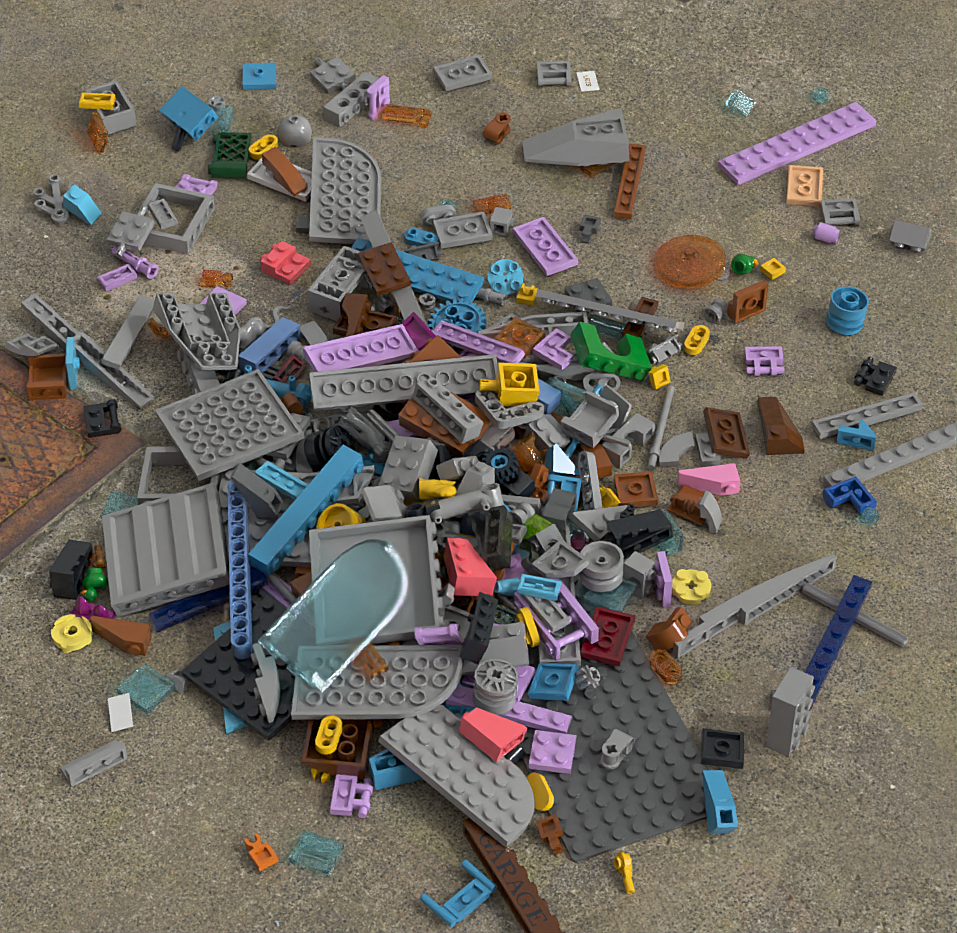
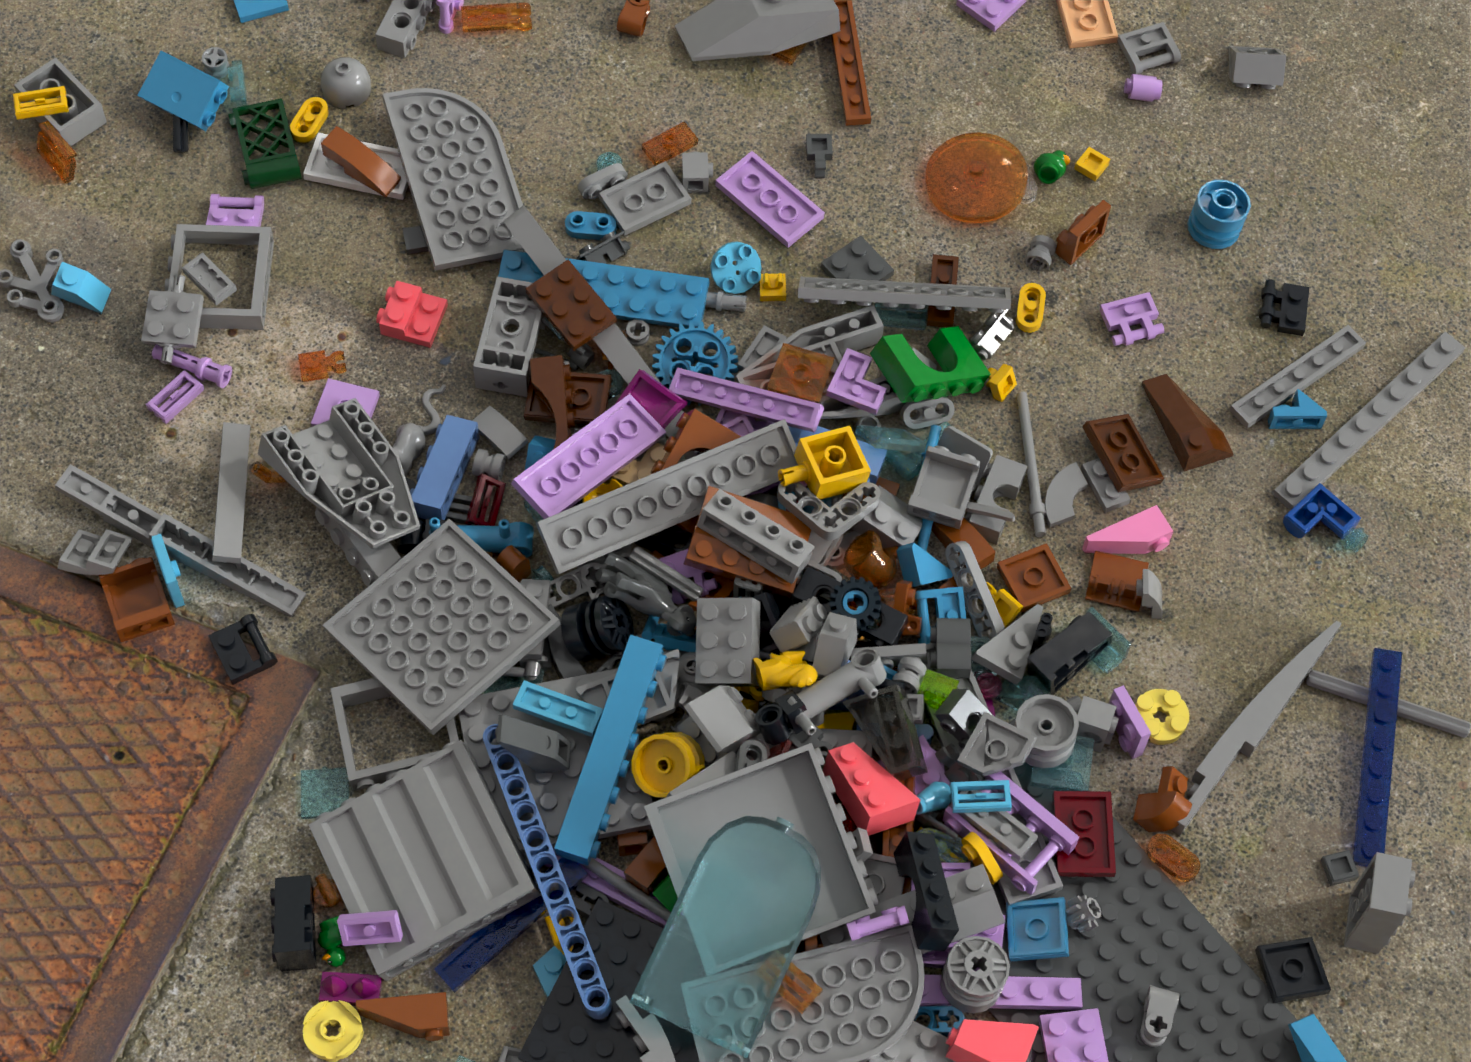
camera: 20 degrees left, 15 degrees up
(115, 575) = (370, 928): none -> lavender plate

